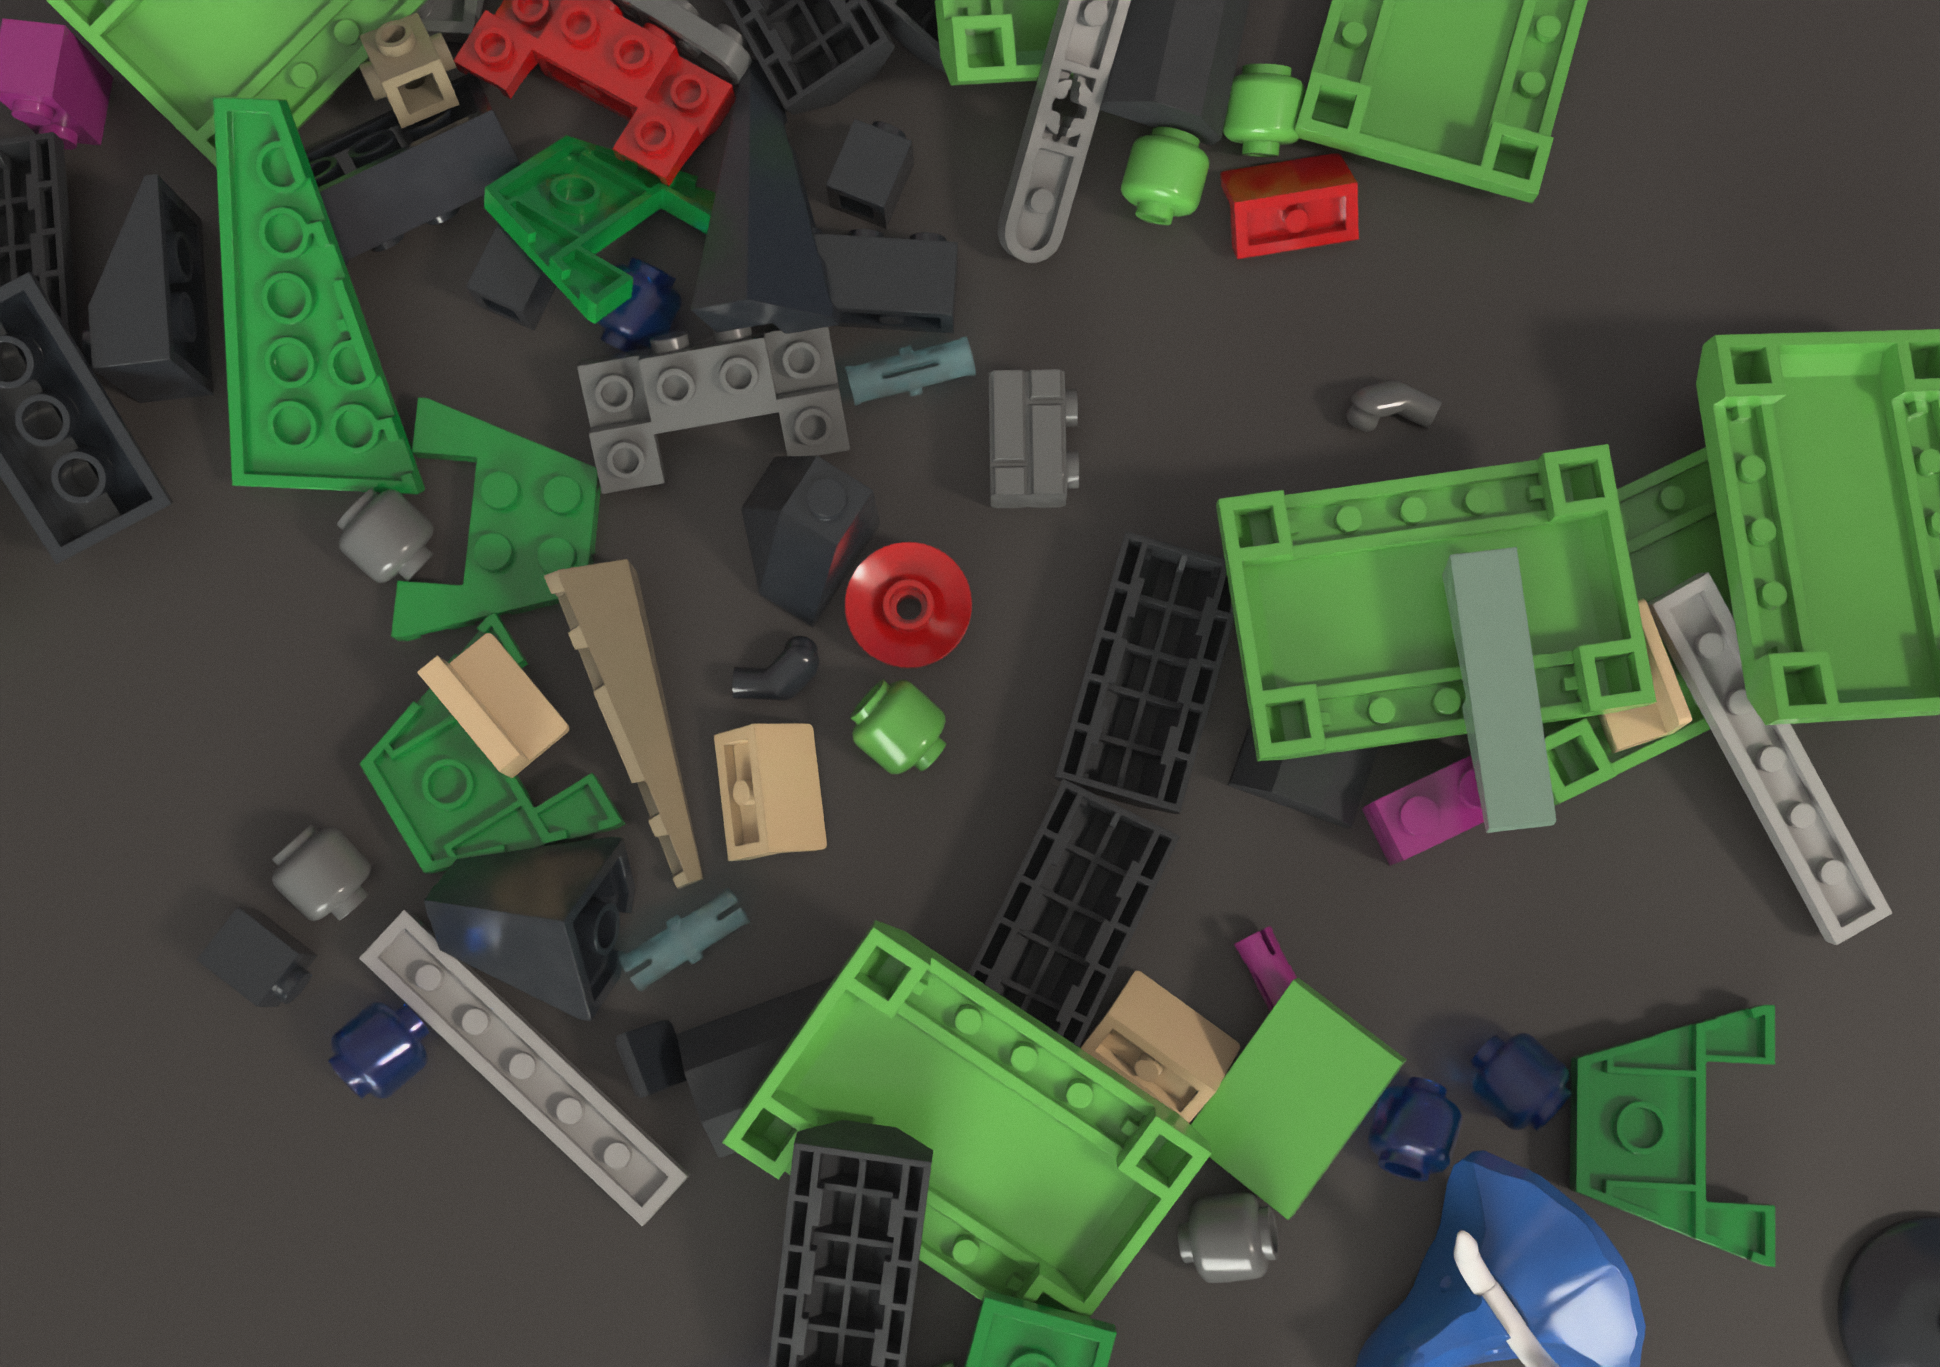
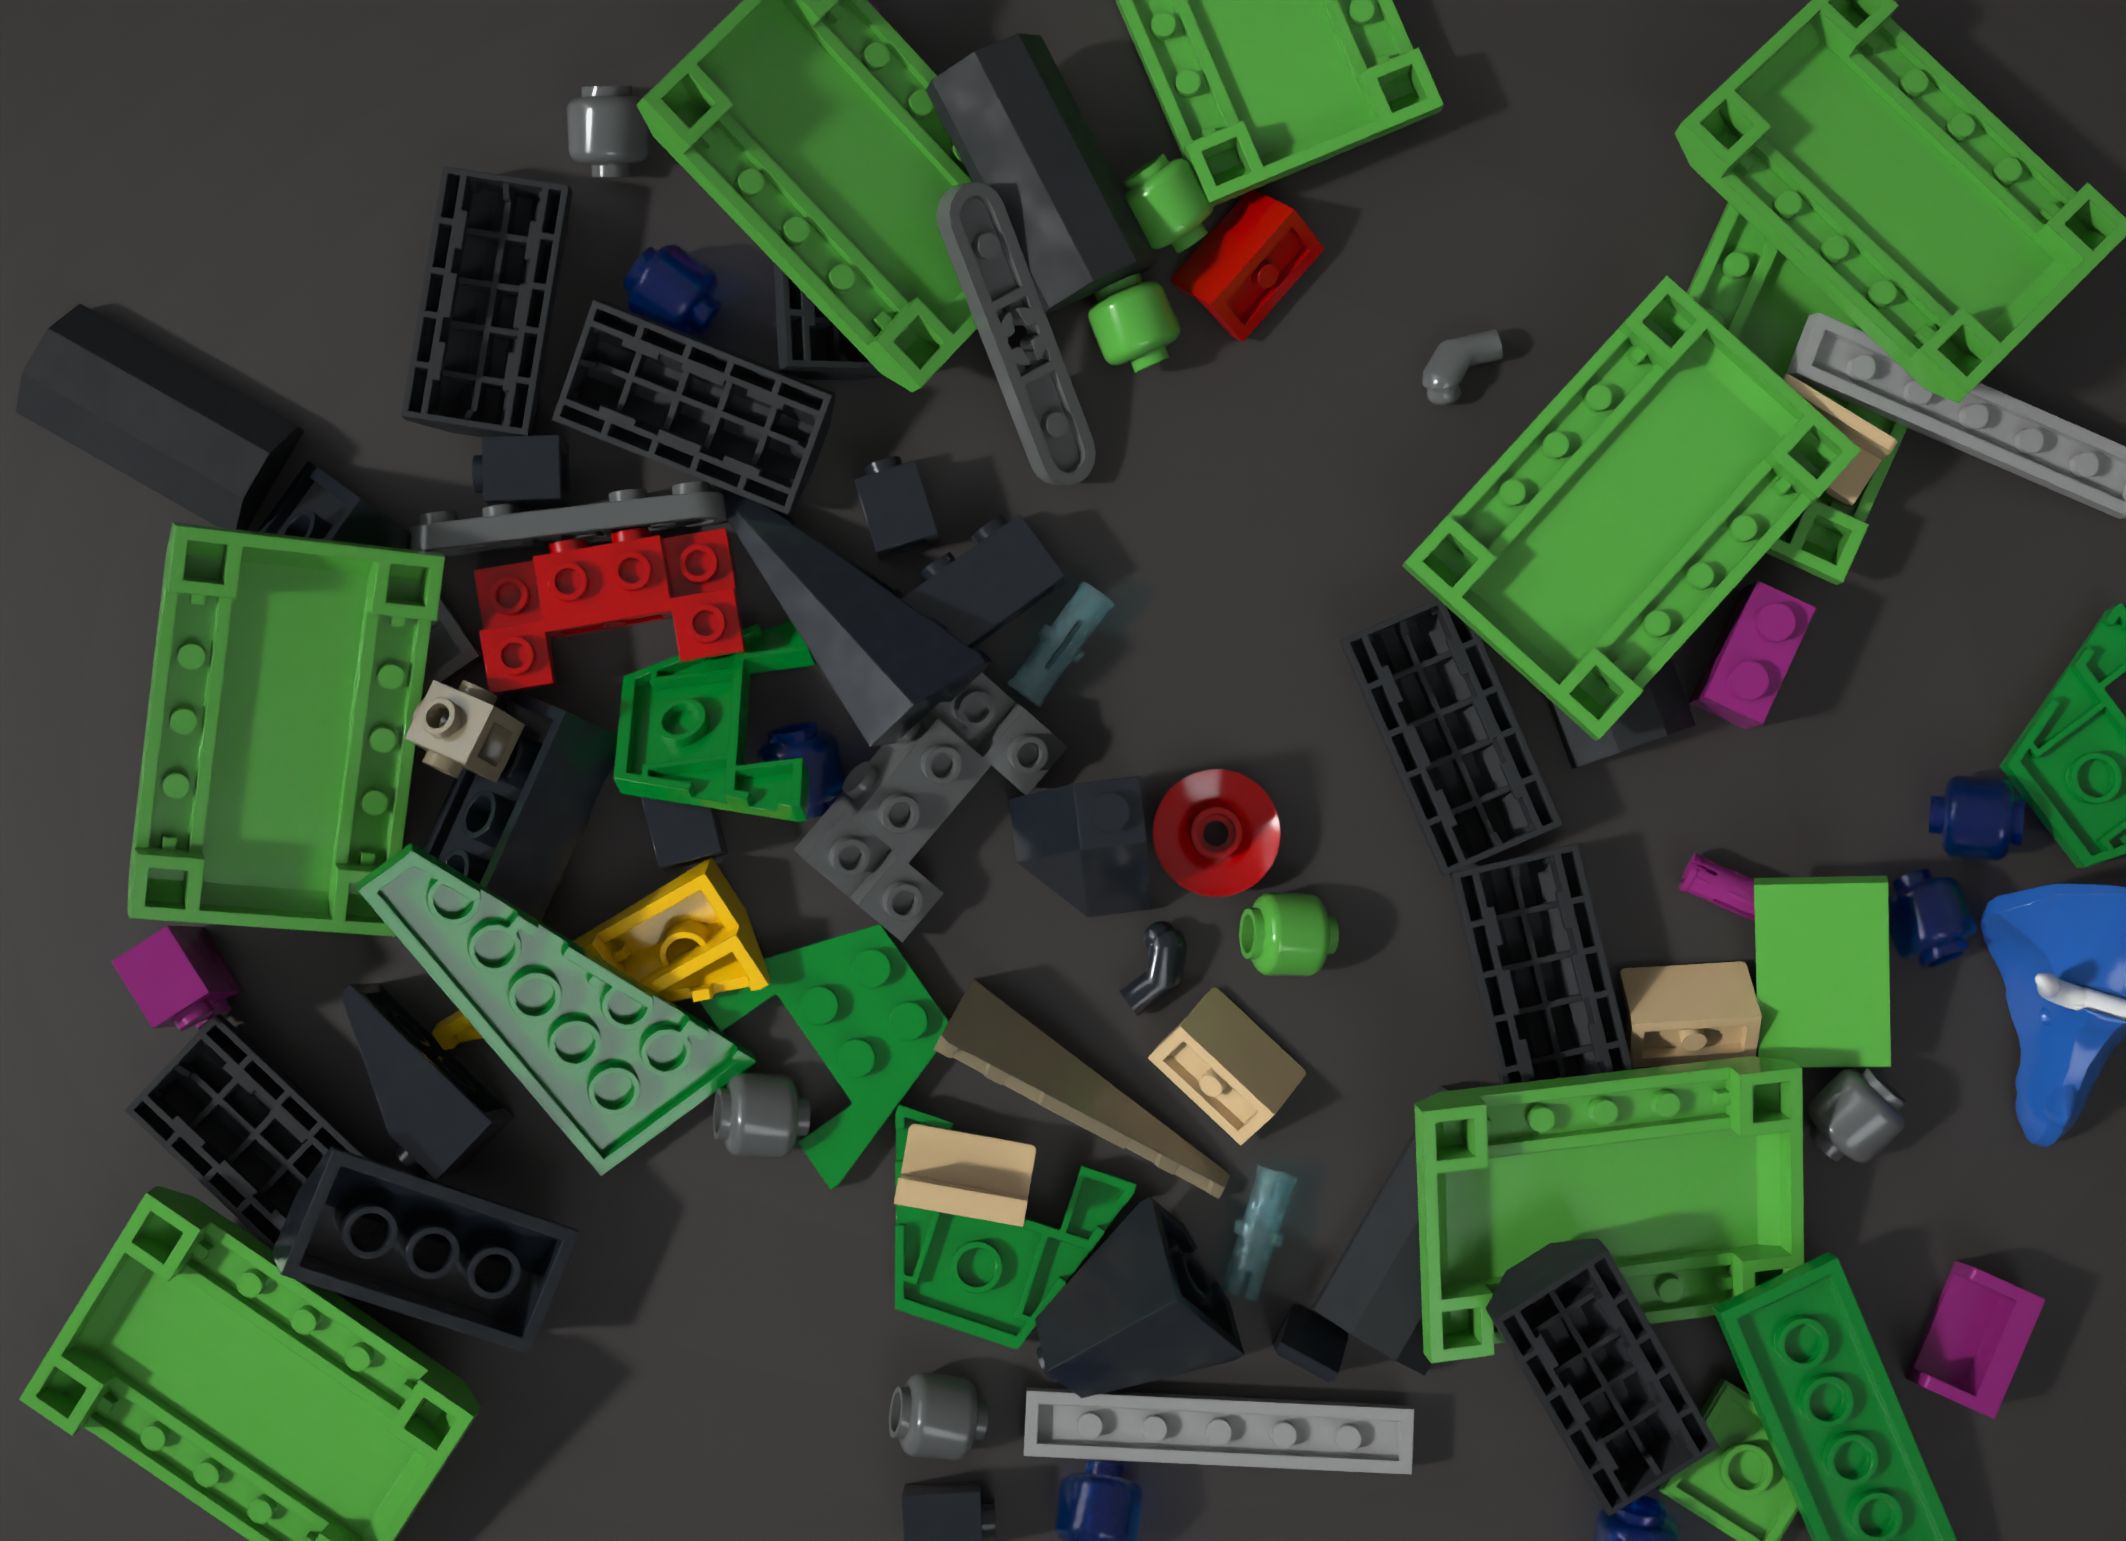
camera: 45 degrees left, 5 degrees up
(436, 359) = (676, 941): none -> yellow wedge
(1029, 438) = (1201, 622): dark grey brick -> none
(1499, 689) = (1738, 538): sand green slope -> none

